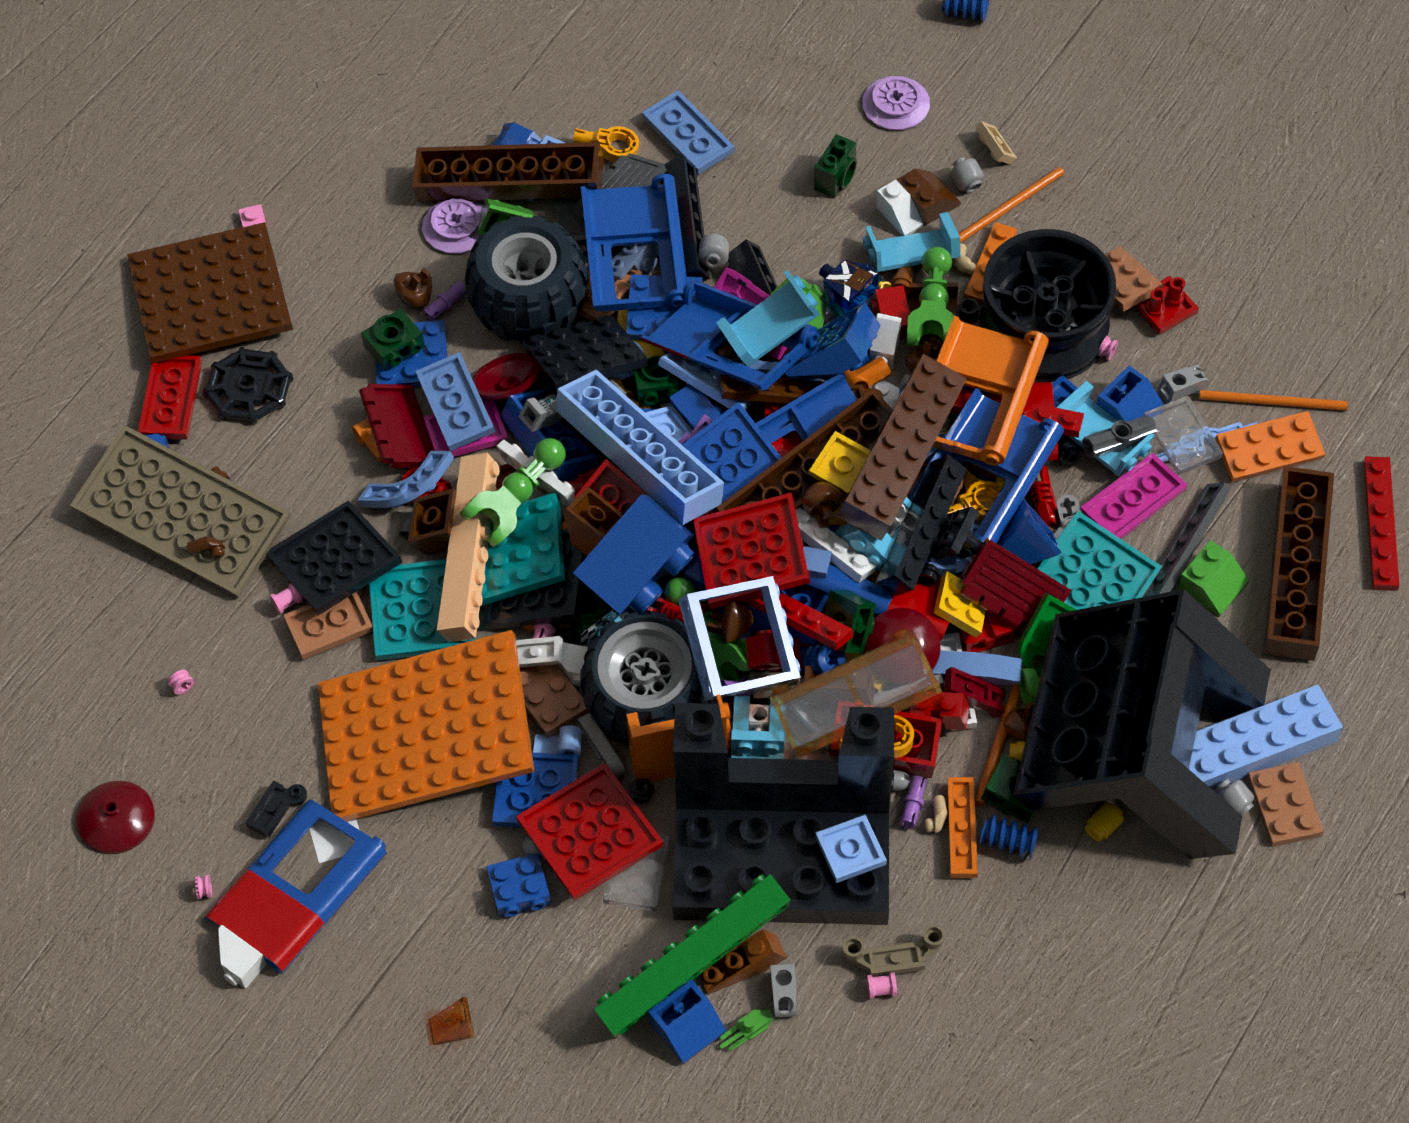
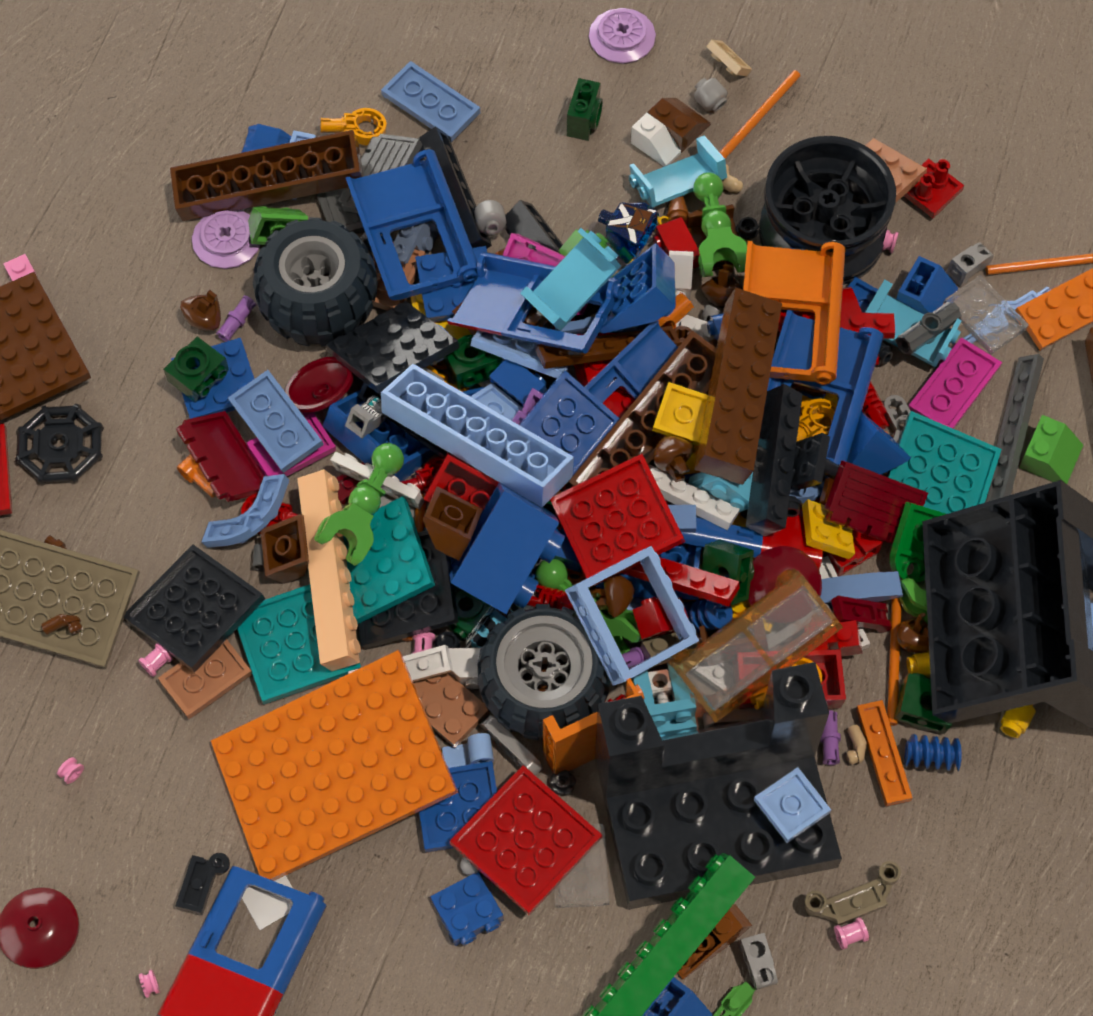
camera: 15 degrees left, 5 degrees up
(998, 235) = (755, 177): orange plate -> none

